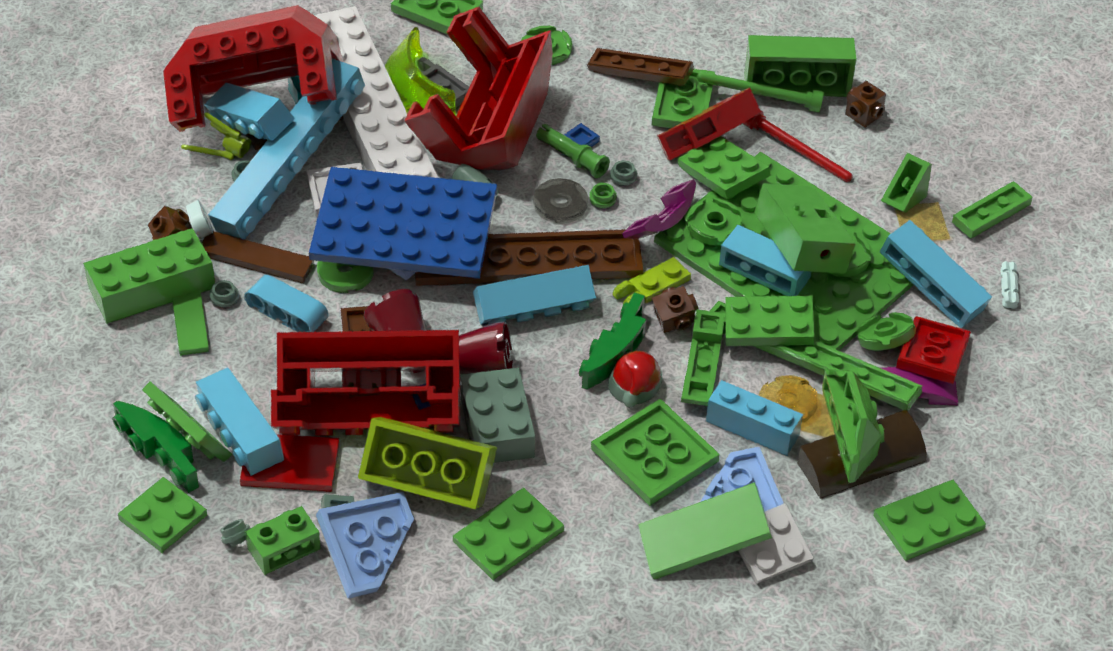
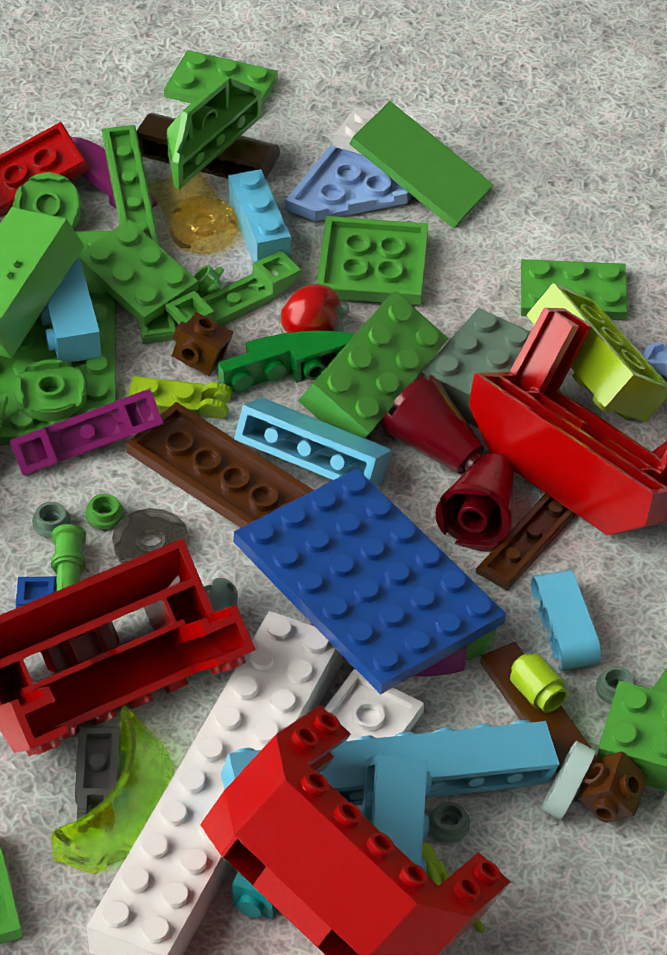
camera: 135 degrees left, 0 degrees up
(261, 248) = (539, 682): none -> lime brick
(549, 352) = (374, 367): none -> bright green brick
(730, 359) = (208, 280): none -> bright green plate

